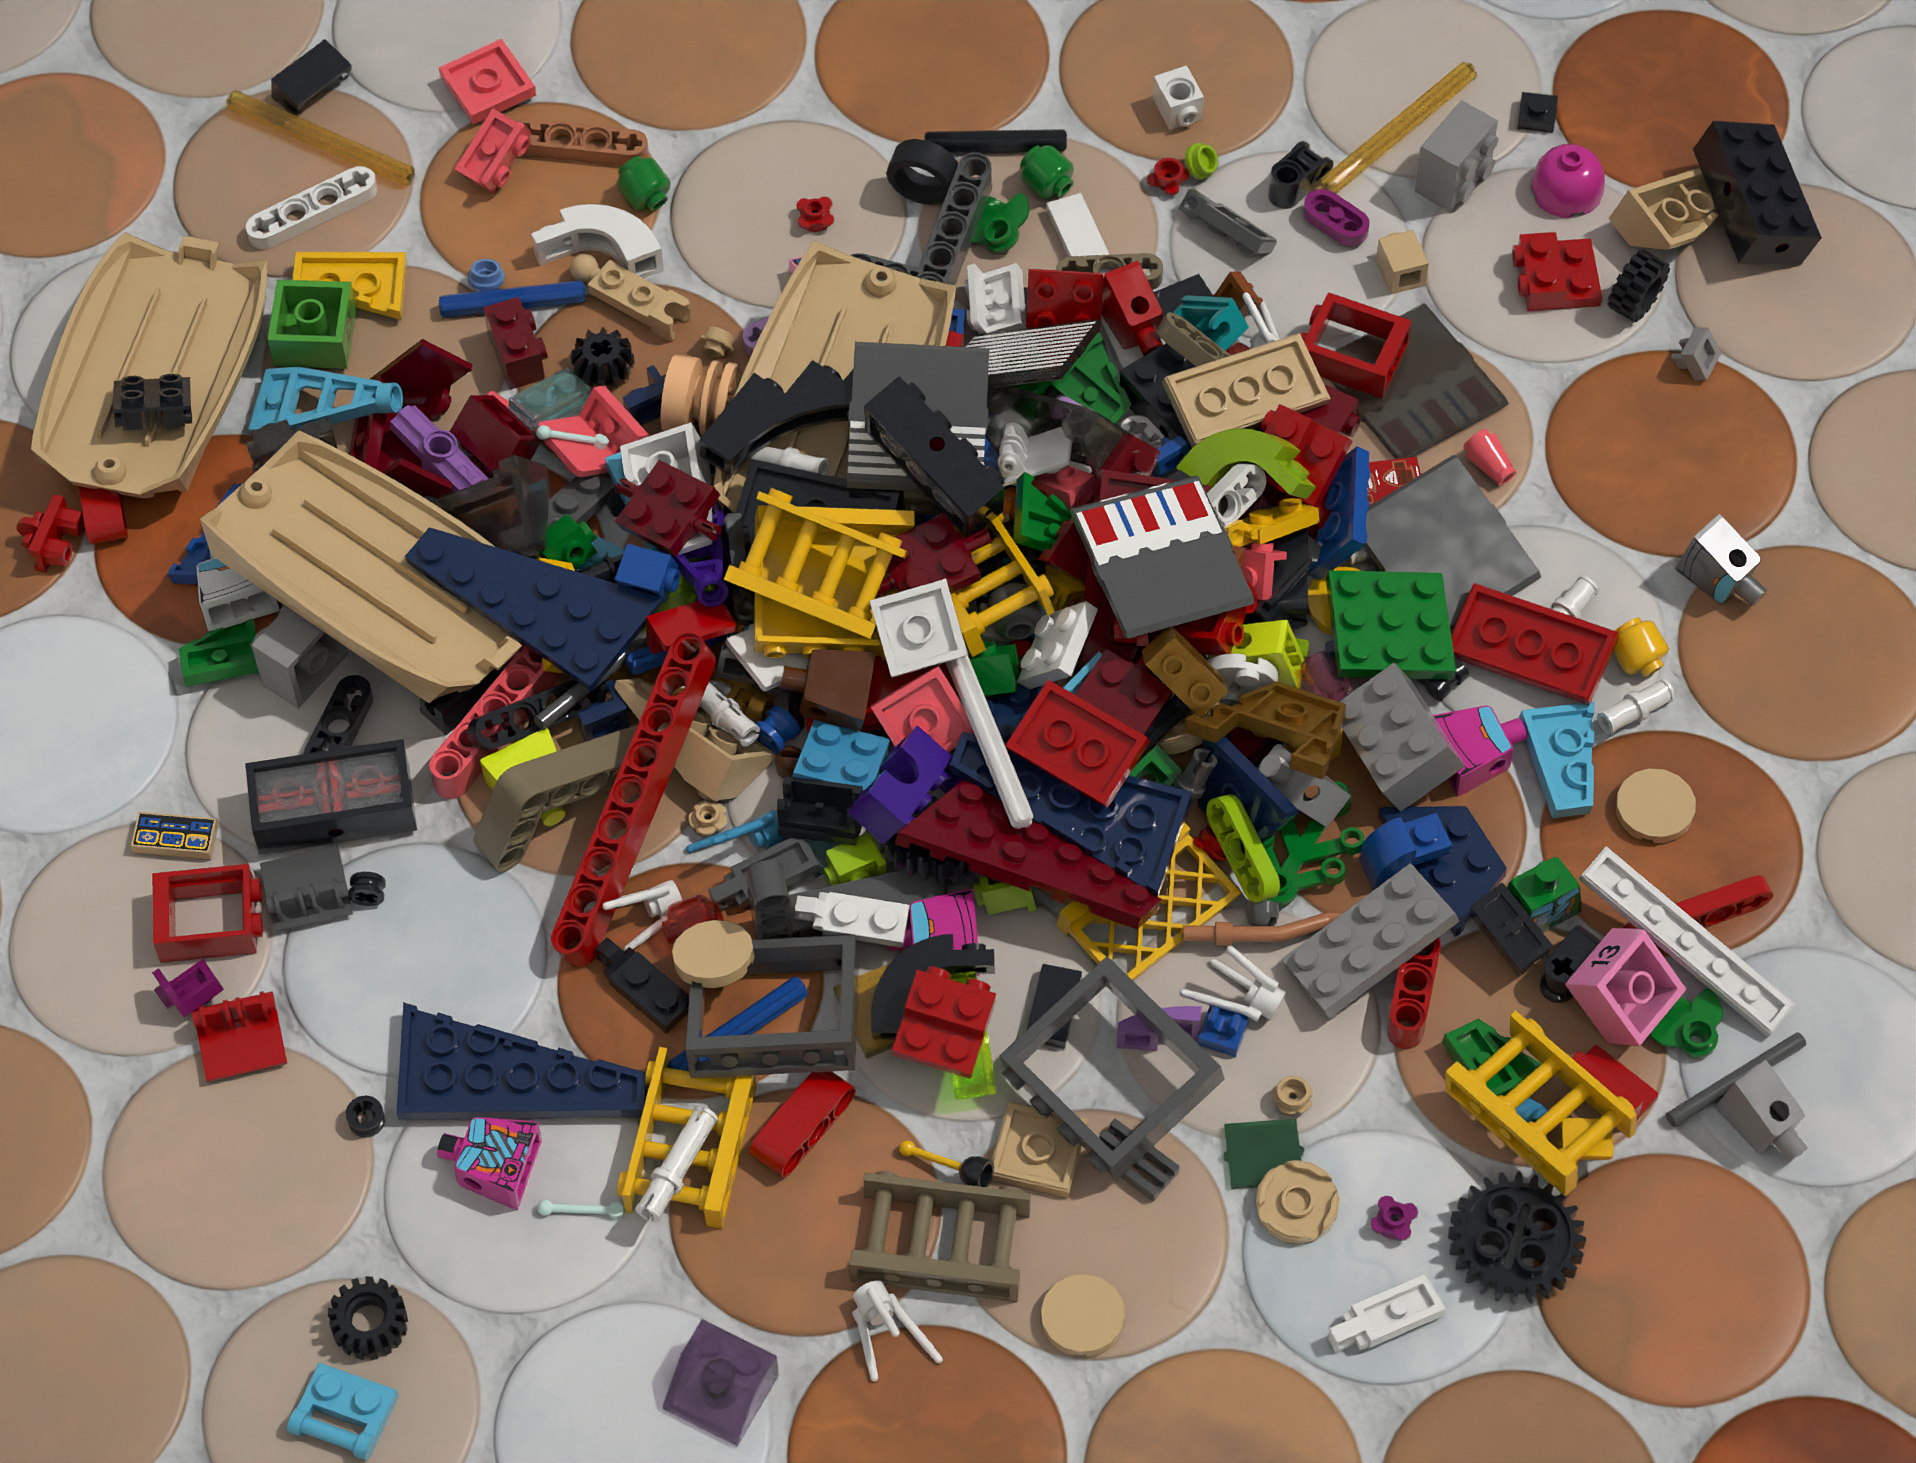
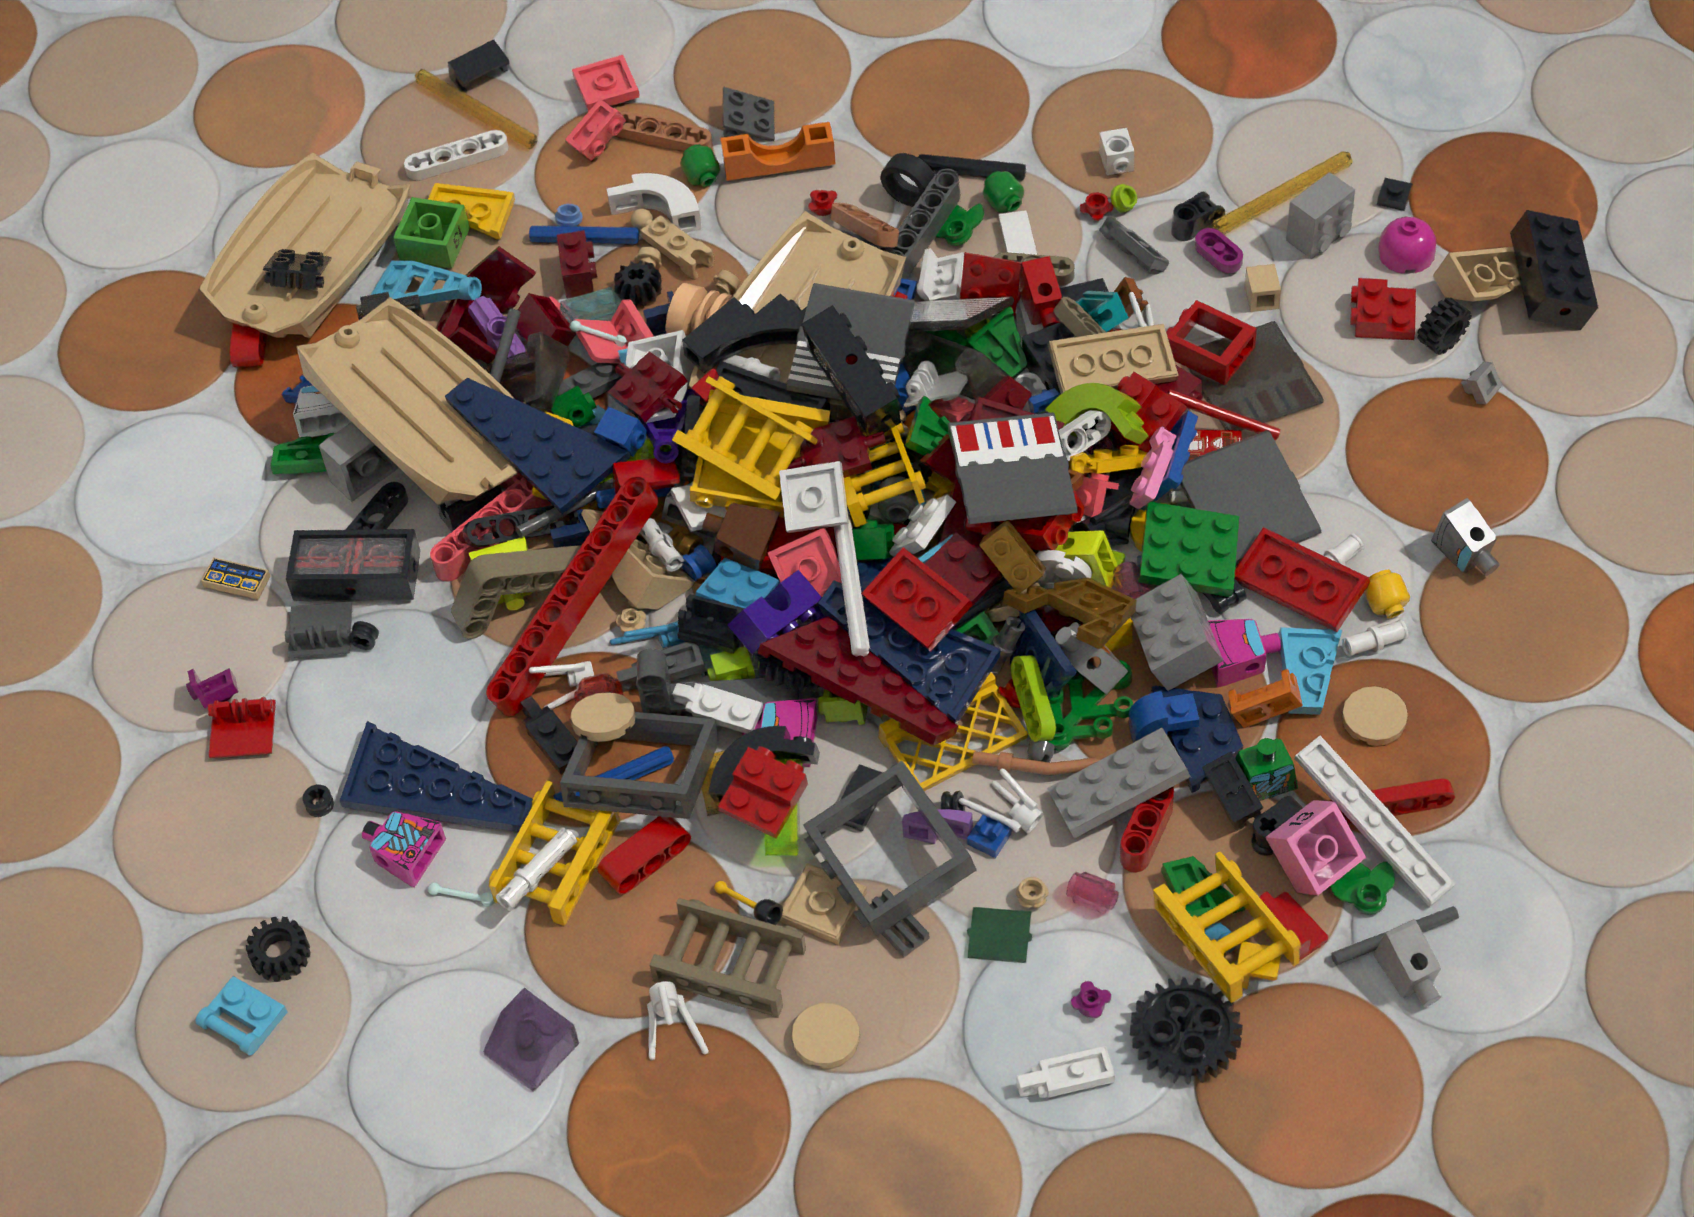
camera: 15 degrees right, 5 degrees down
(45, 530) = (203, 353): red hips -> none
(203, 883) = (239, 613): red window -> none
(460, 471) = (505, 344): none -> dark grey bar
(608, 318) = (649, 255): none -> tan plate
(687, 104) = (747, 115): none -> dark grey hinge
(745, 501) = (703, 389): none -> red slope
(782, 143) = (809, 149): none -> orange arch
(882, 242) = (864, 224): none -> nougat beam
(1169, 995) = (952, 801): none -> black bush
(1297, 1202) = (1016, 975): tan tile -> none
(1329, 528) = (1154, 468): none -> bright pink hinge
(1366, 1083) = (1092, 892): none -> clear pink brick
(1394, 440) = (1224, 415): none -> red bar
(1489, 456) = (1299, 437): coral cone -> none
(1524, 807) = (1266, 701): none -> orange hinge

